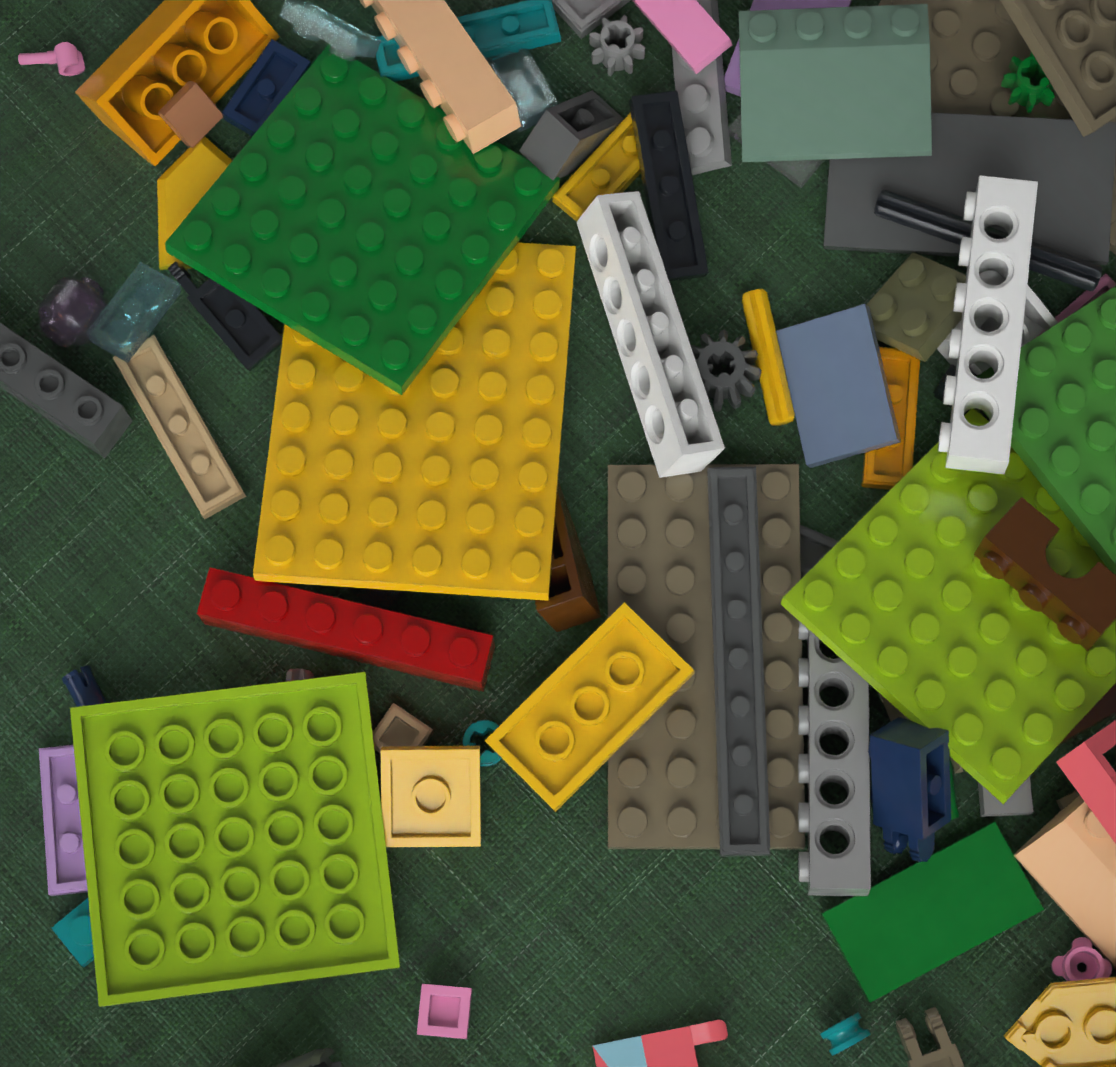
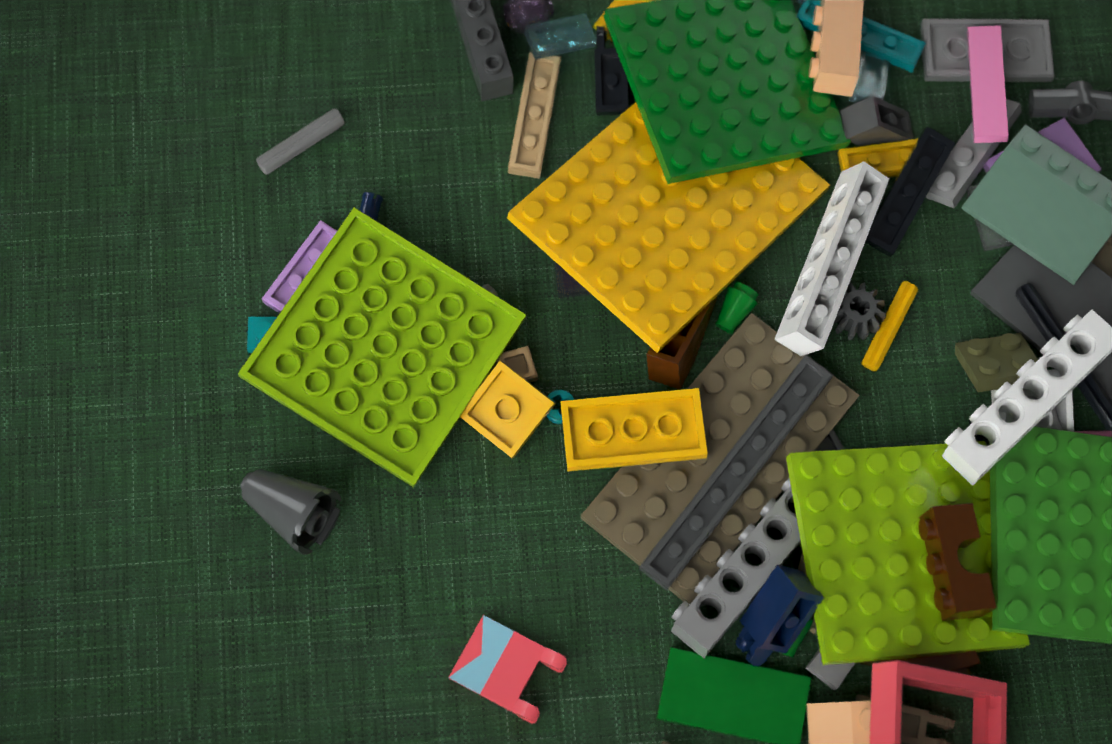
camera: 30 degrees right, 5 degrees down
(346, 629) = (536, 287): red brick -> none
(444, 1011) = (418, 529): bright pink plate -> none
(585, 469) = (736, 306): none -> green cone
(622, 35) = (945, 89): light grey gear -> none
(838, 386) = (917, 370): sand blue tile -> none
(845, 1034) = (628, 723): teal bush -> none
(889, 464) = (934, 410): light orange tile -> none

